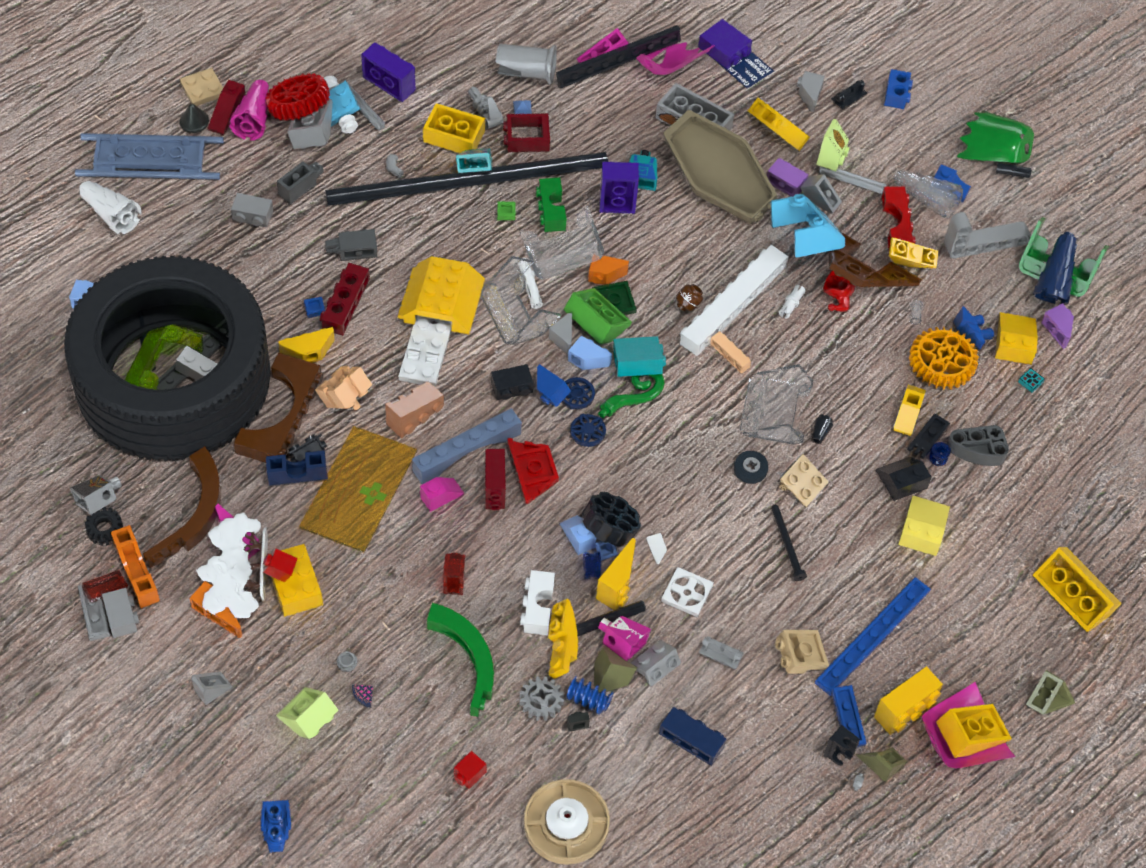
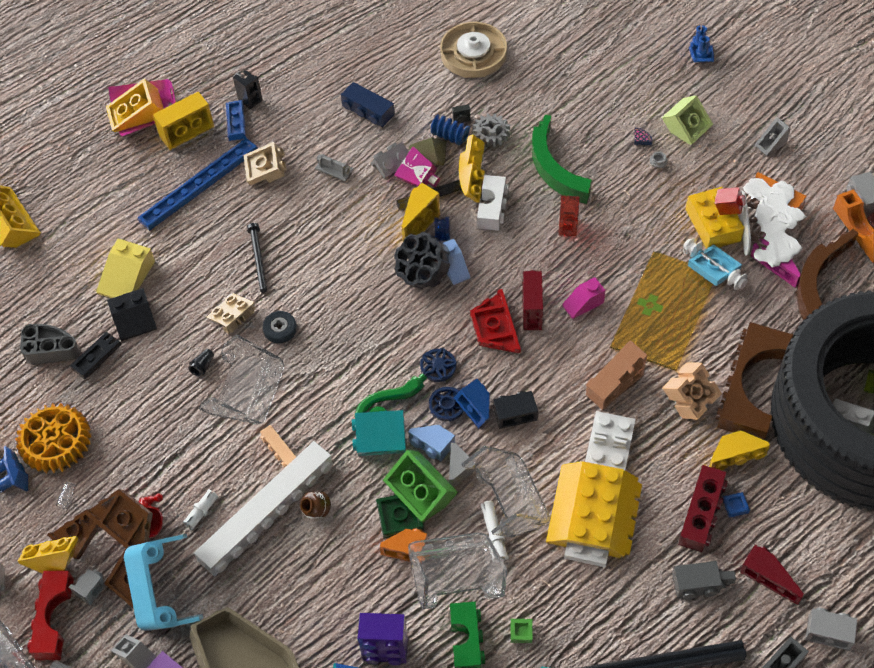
camera: 170 degrees left, 0 degrees up
(285, 472) = (712, 316): dark blue arch -> none
(298, 251) = (769, 572): none -> dark red slope
(302, 525) = (714, 264): none -> medium azure plate
(312, 444) = (725, 341): black hinge -> none
(438, 459) = (589, 324): sand blue arch -> none
(469, 770) = (550, 81): red brick -> none
(657, 547) = (379, 257): white sticker -> none
(693, 580) = (351, 227): white piece -> none
(873, 239) = (88, 586): none -> light grey brick
(883, 763) = (214, 88): olive slope -> none
(909, 410) = (103, 383): yellow slope -> none
(935, 456) = (91, 332): clear blue wheel -> none
(1050, 694) = (63, 136): olive slope -> none

